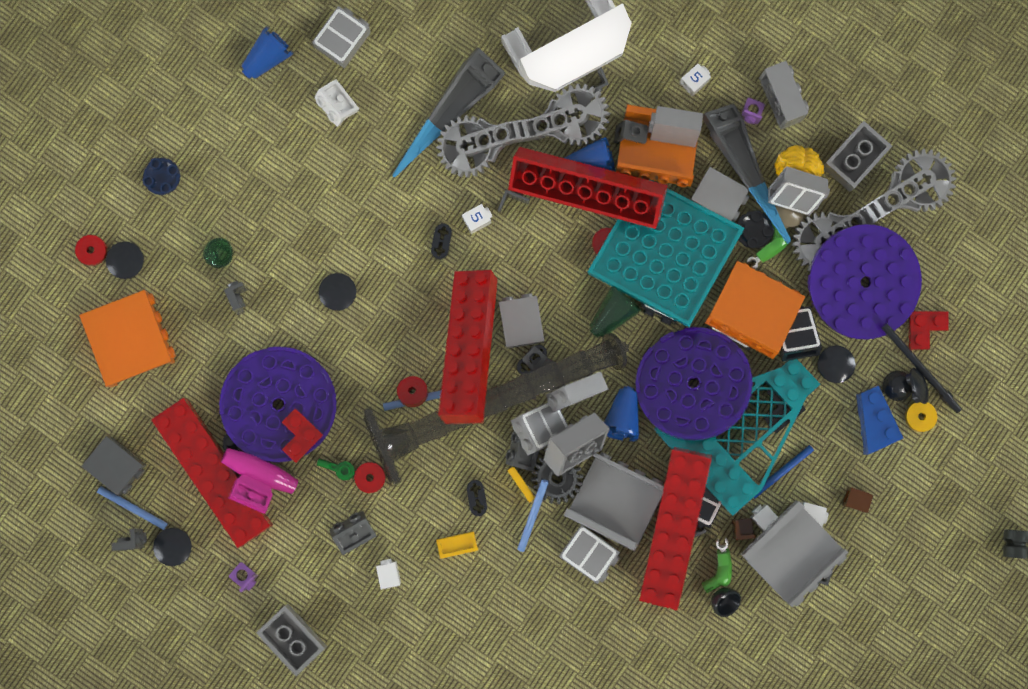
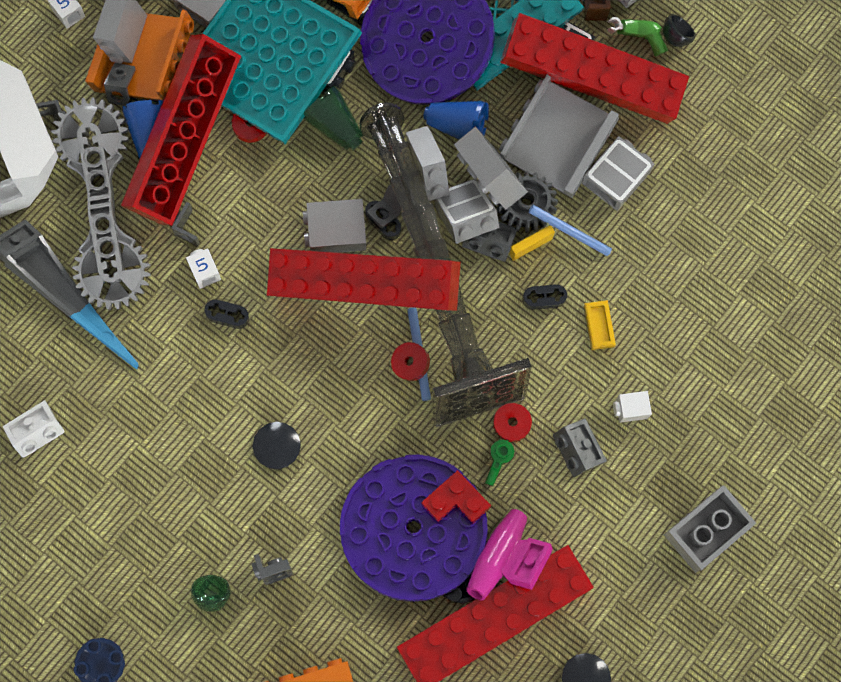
camera: 90 degrees left, 10 degrees down
(249, 582) = (635, 580): medium lavender bracket -> none

